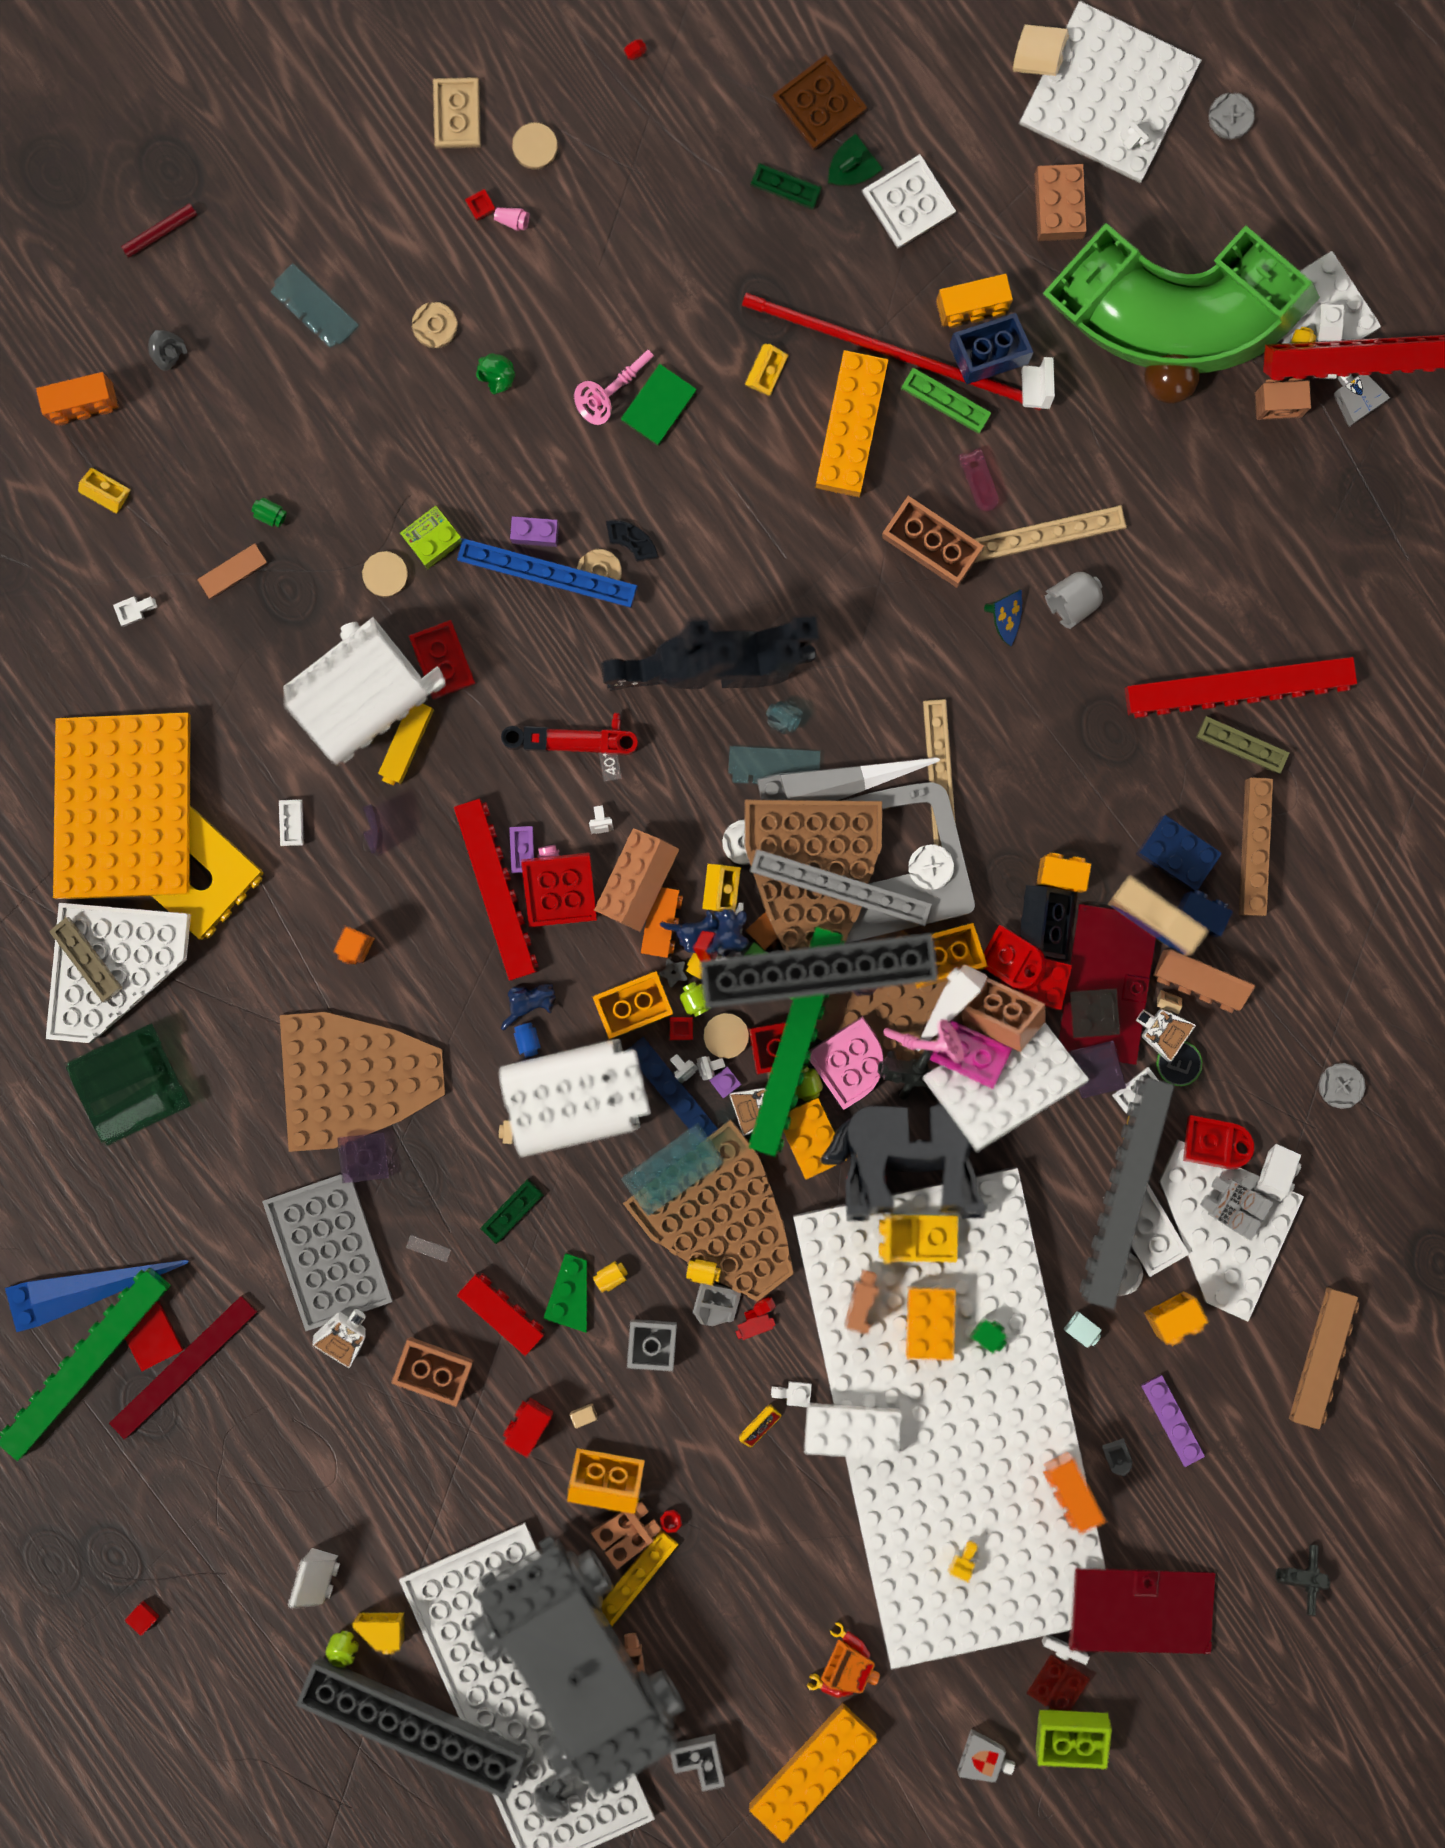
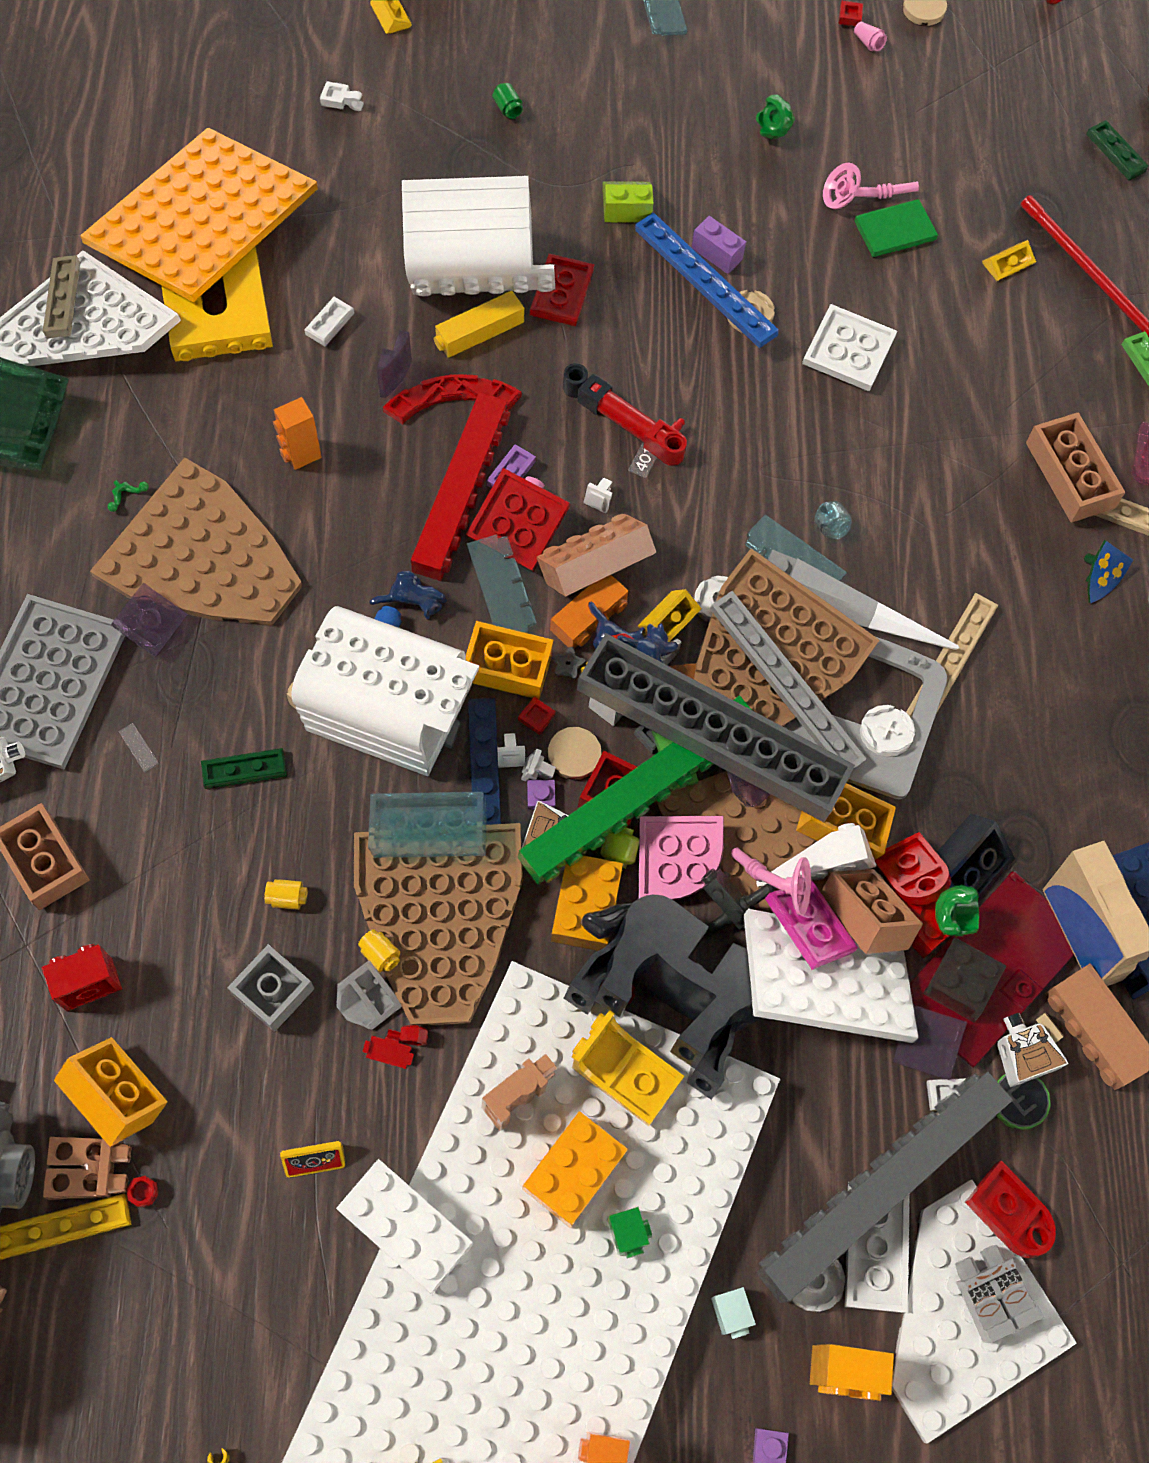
camera: 30 degrees right, 20 degrees down
(232, 571) = (442, 123): nougat tile -> none
(261, 1090) = (112, 506): none -> green piece
(385, 574) = (566, 201): tan tile -> none
(423, 811) = (445, 389): none -> red tile
(434, 325) = (749, 67): tan tile -> none
(501, 1314) = (152, 853): red brick -> none
(569, 1295) = (229, 887): green wing -> none
(578, 948) = (496, 580): none -> clear light blue windscreen
(583, 1415) = (146, 1011): tan piece -> none
(633, 538) = (798, 305): black tile -> none
(693, 999) = (568, 700): lime head -> none
(697, 551) = (849, 347): none -> white plate
(705, 655) = (841, 443): black animal -> none
(797, 1393) = (374, 1149): white plate -> none
(851, 423) = (1059, 338): light orange brick -> none
(1062, 977) = (958, 911): none -> green hair
(1063, 873) = (1021, 823): light orange brick -> none
(1278, 1173) = (1066, 1292): white brick -> none

